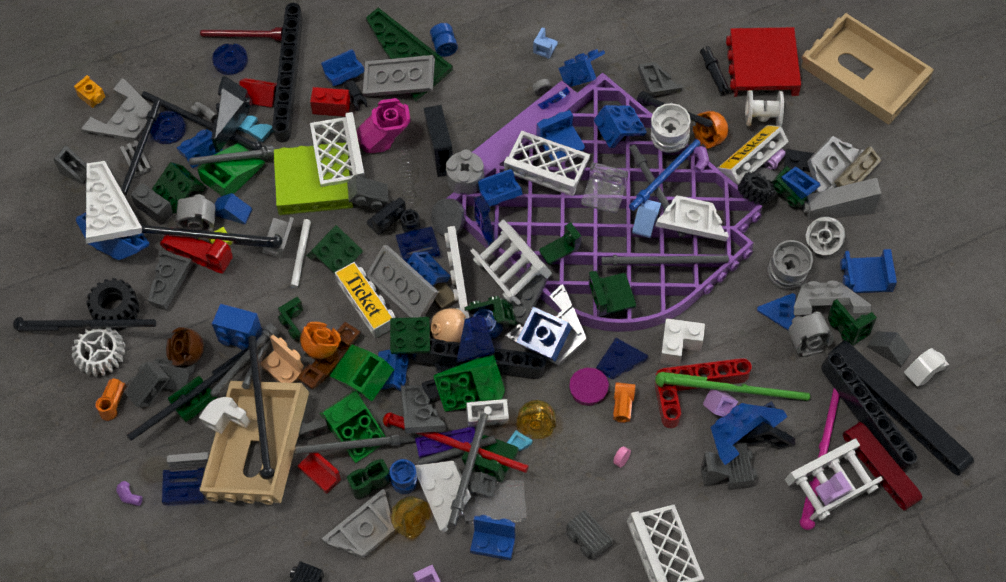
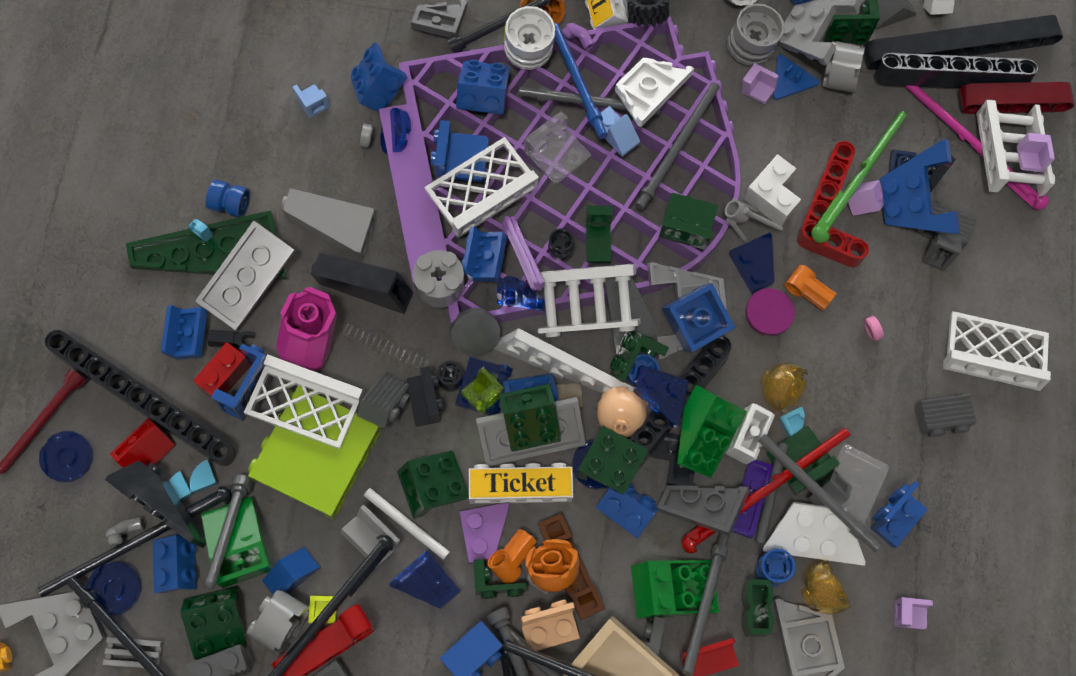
camera: 65 degrees left, 10 degrees up
(270, 283) = (427, 581): none -> clear blue wing
(308, 314) = (507, 561): none -> orange piece
(323, 114) = (236, 405): none -> blue panel
(323, 297) = (483, 530): none -> medium lavender wing
(362, 372) = (618, 542): green slope -> none
(405, 271) = (530, 417): none -> dark green bracket
(409, 242) = (483, 391): none -> clear neon green panel
(411, 37) = (200, 230): none -> medium azure tile
(470, 104) = (331, 220): none -> light grey slope
(514, 206) = (523, 253): none -> medium lavender axle
(538, 227) = (563, 239): none -> black wheel
(641, 320) = (740, 212): none -> light grey plant
(756, 290) = (759, 83): none -> lavender panel

